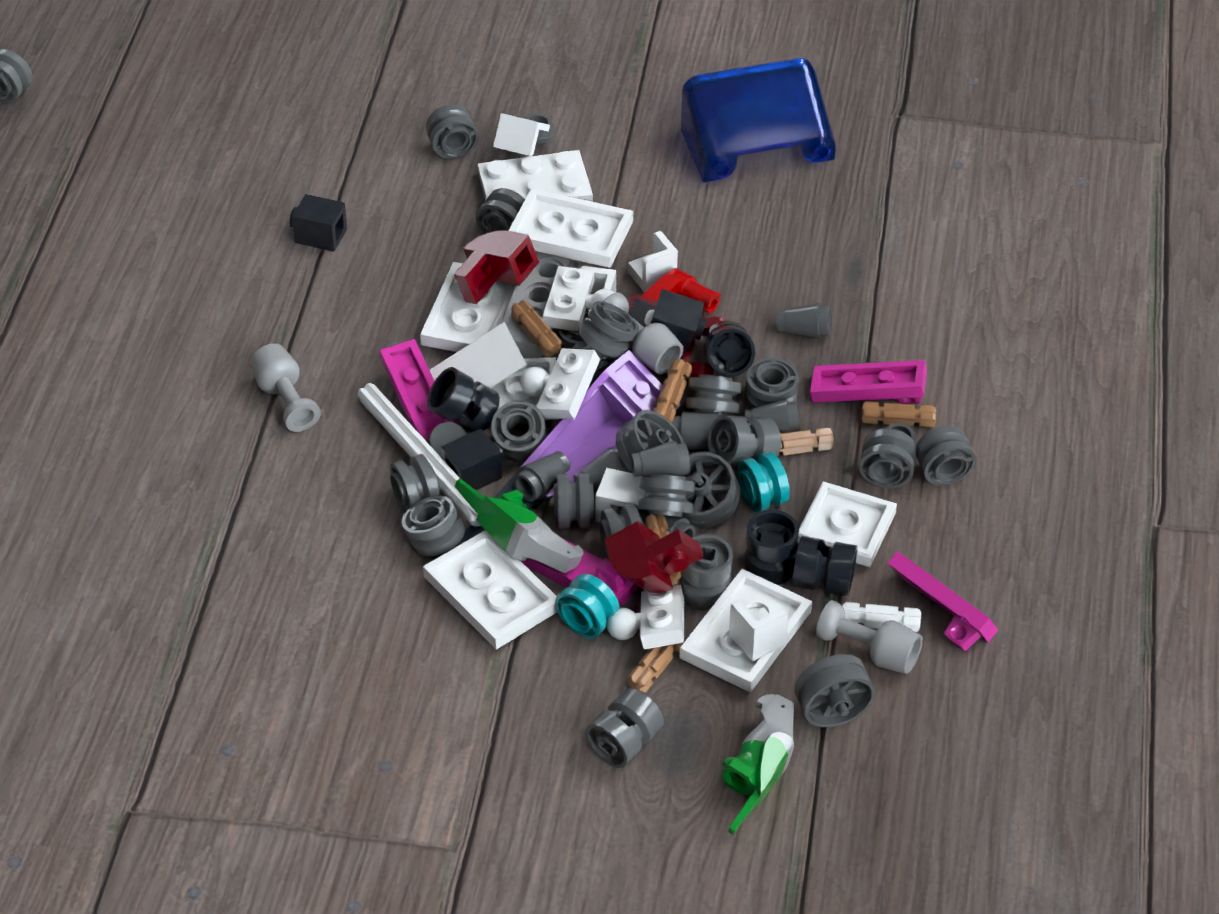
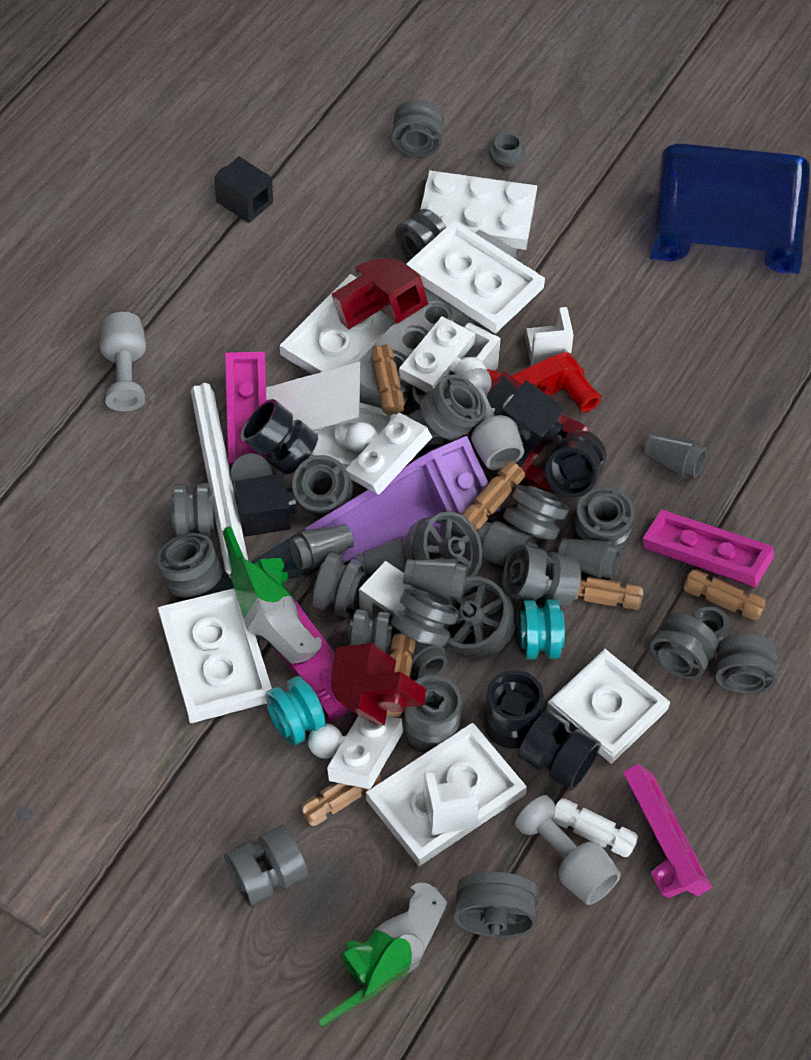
camera: 20 degrees right, 10 degrees up
(518, 134) = (479, 150): white panel -> none

